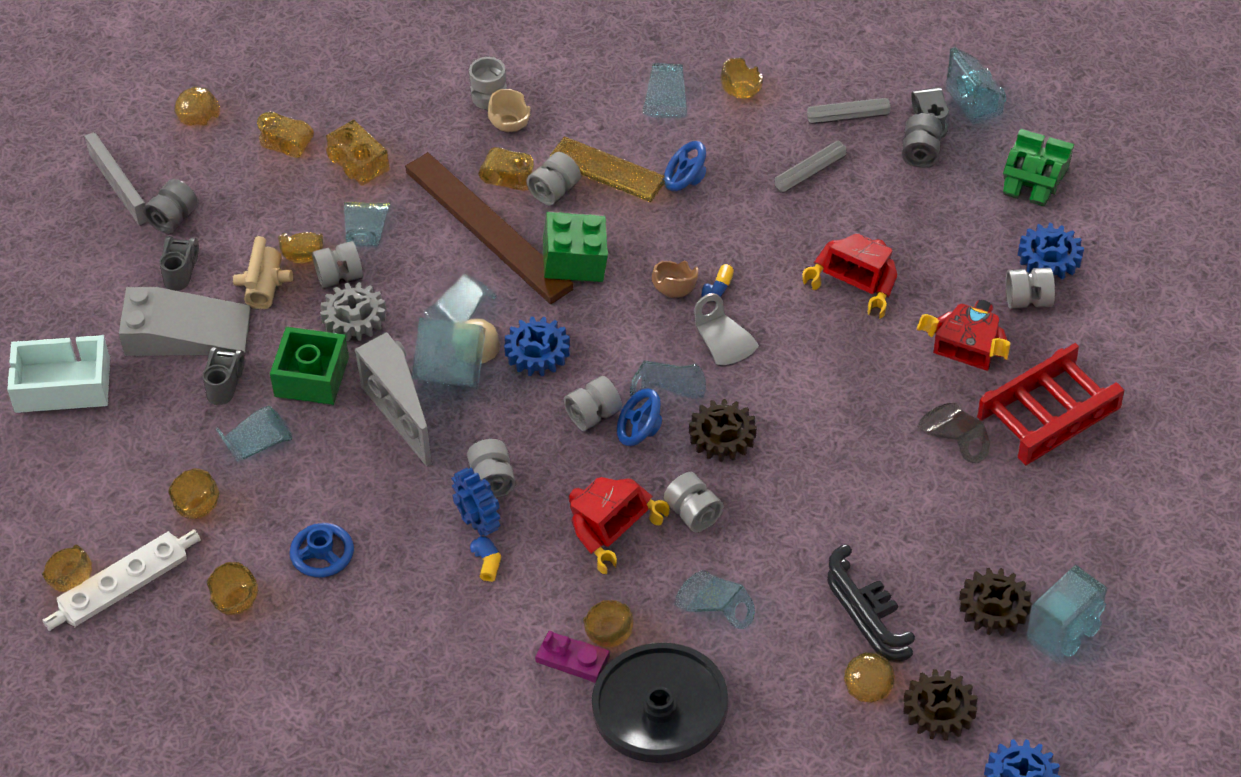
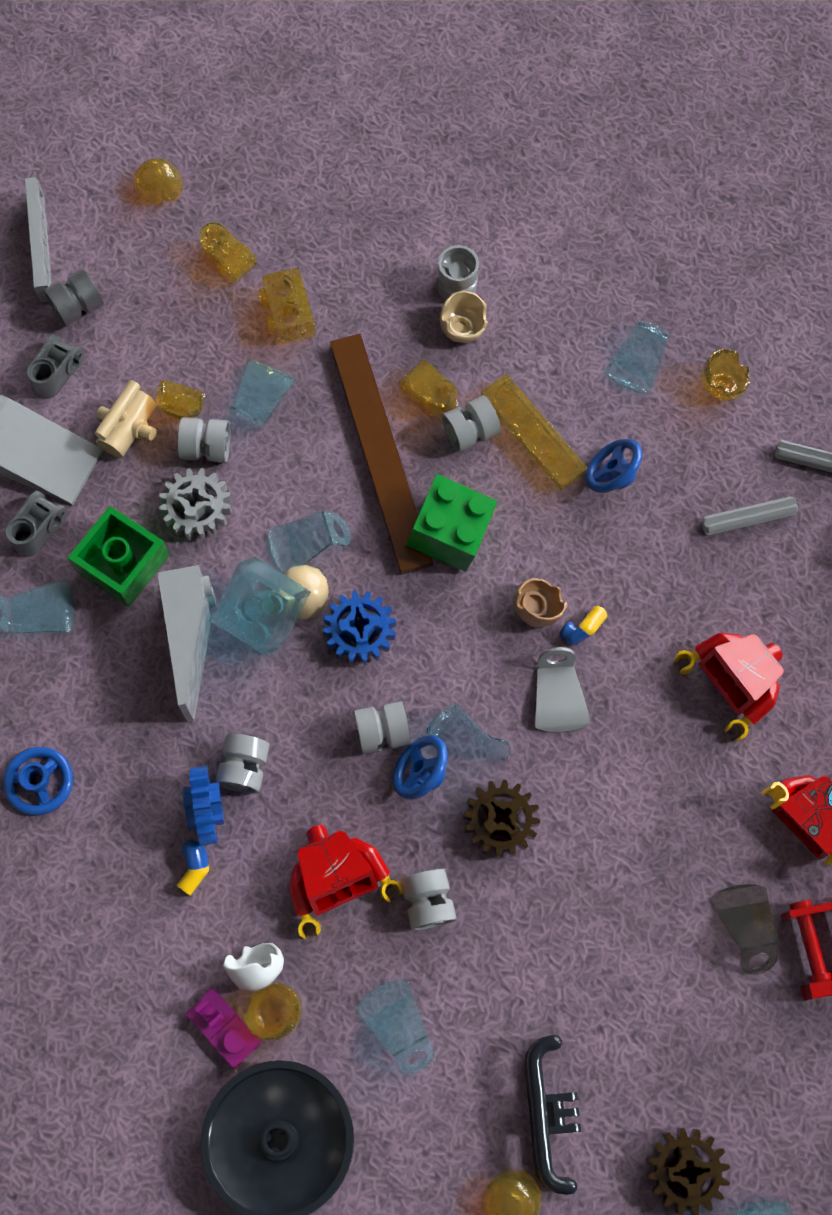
camera: 20 degrees right, 20 degrees up
(577, 599) = (255, 967): none -> white hair

